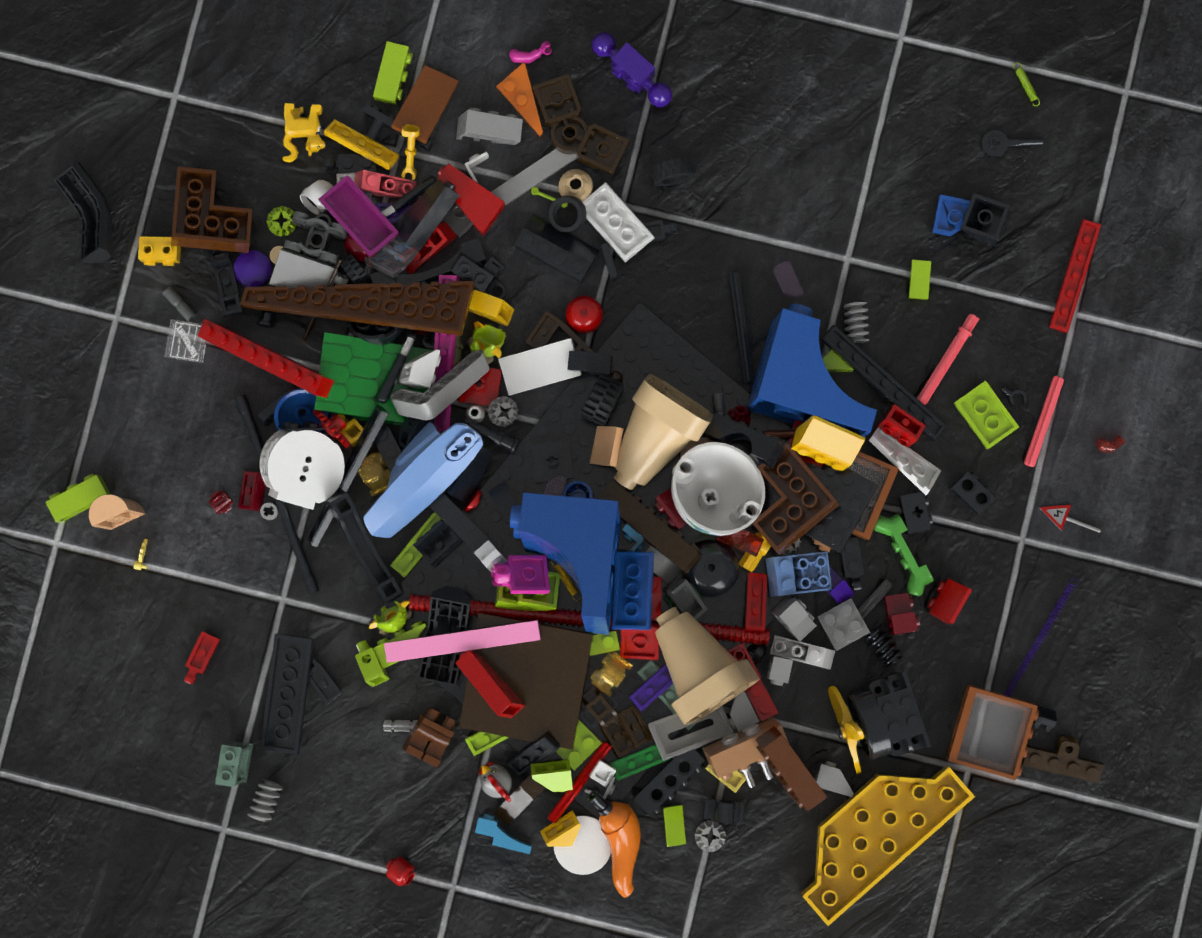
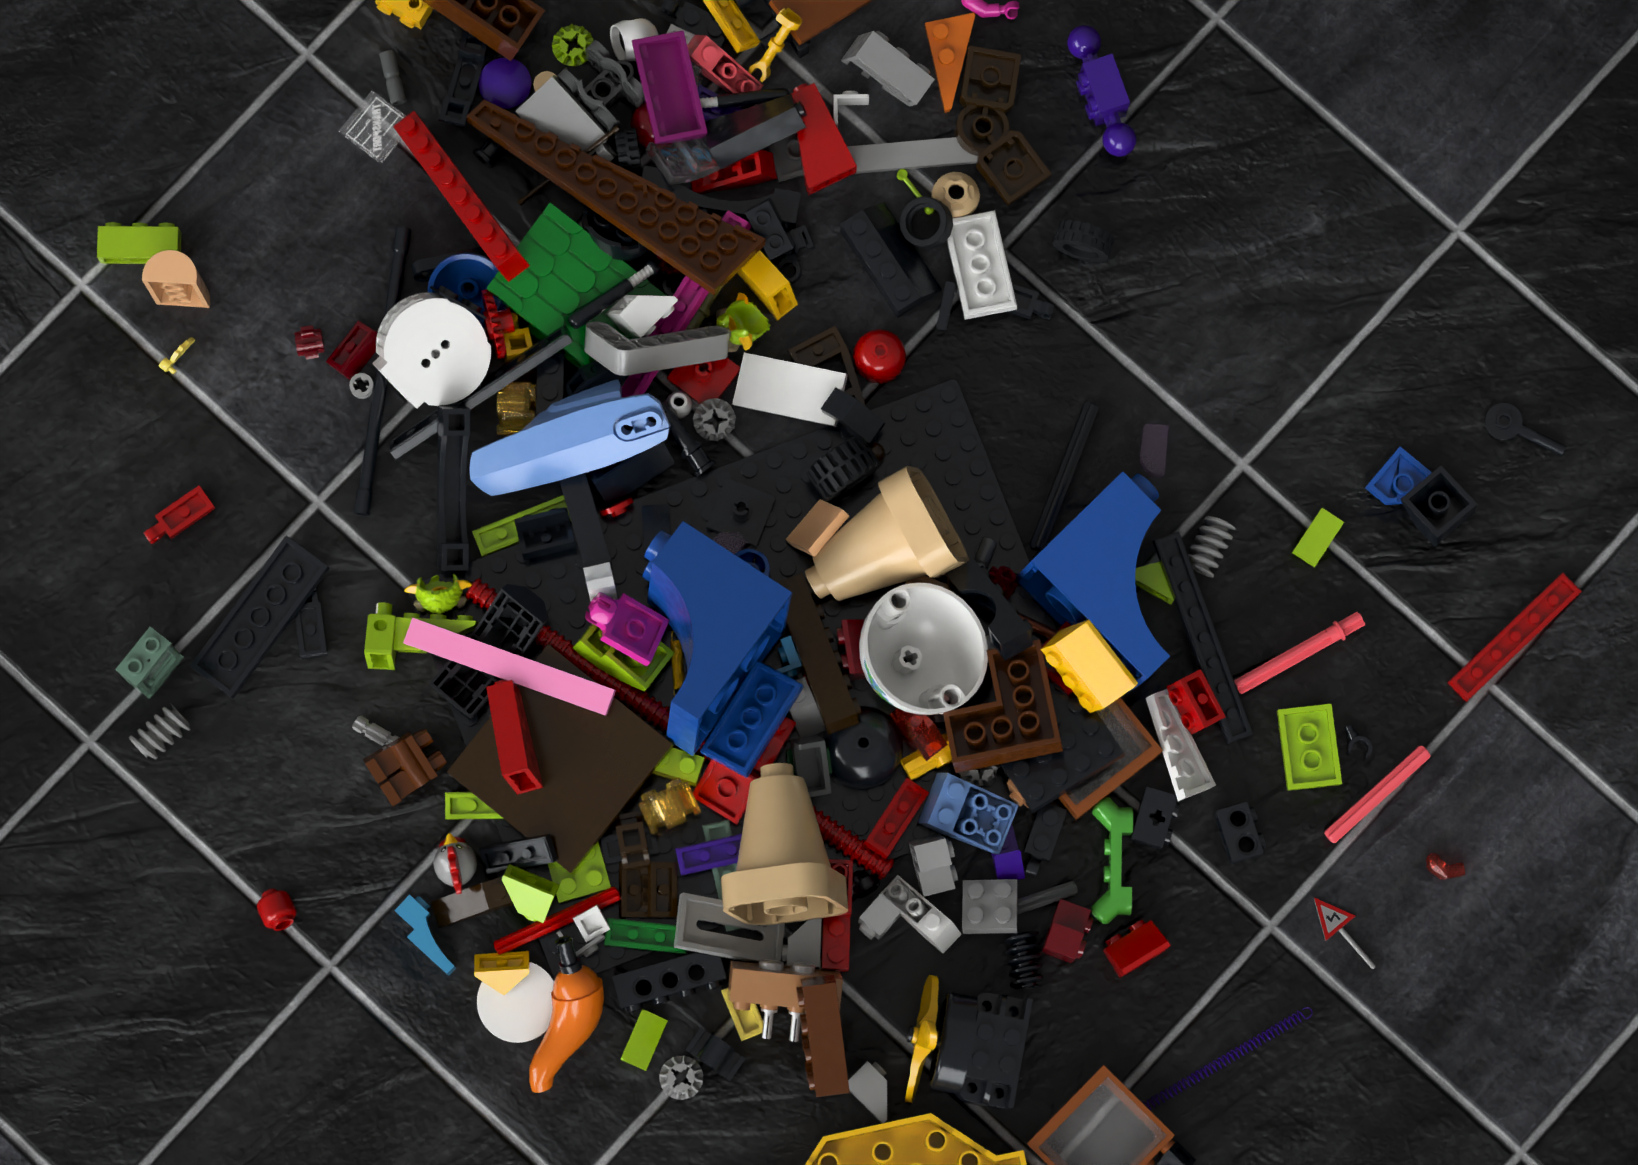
camera: 20 degrees right, 5 degrees down
(1026, 84) = (1582, 370): lime piece -> none

